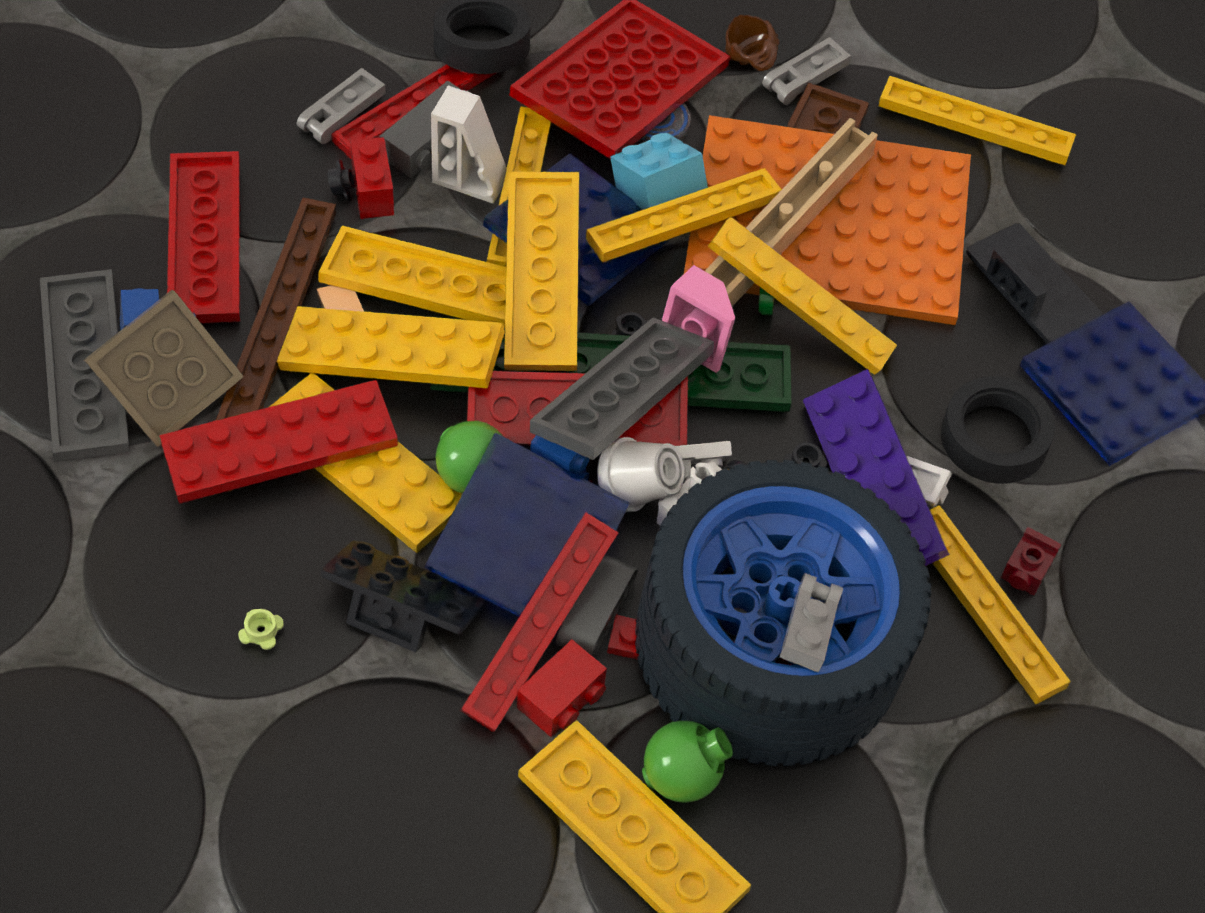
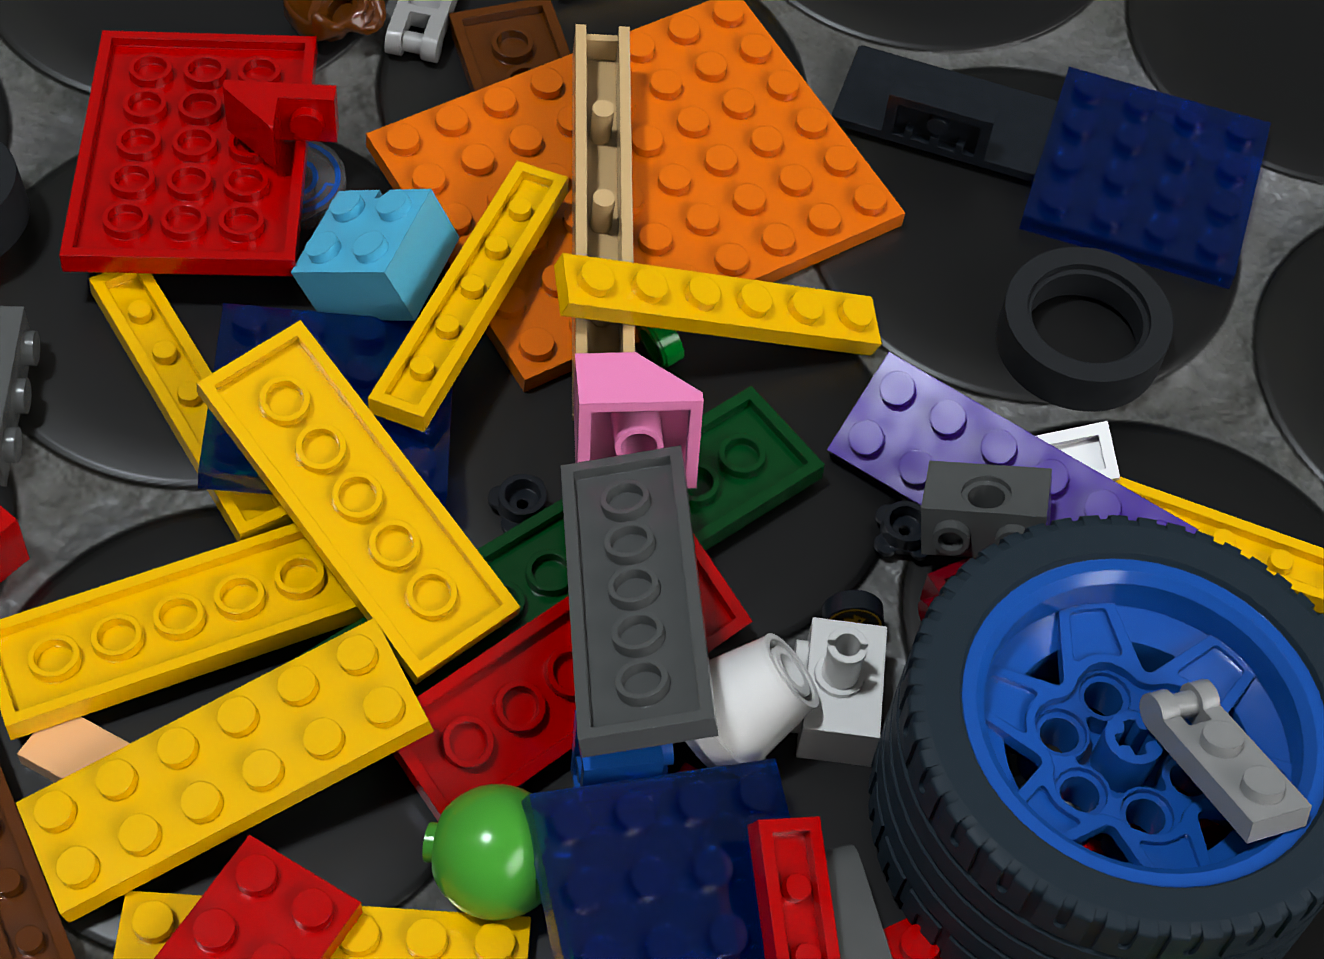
camera: 40 degrees left, 0 degrees up
(465, 147) = (76, 387): white wedge -> none
(669, 78) = (277, 111): none -> red slope
(704, 453) = (788, 612): white plate -> none
(842, 455) = (979, 504): none -> dark grey brick
(1030, 561) = (1276, 474): dark red brick -> none

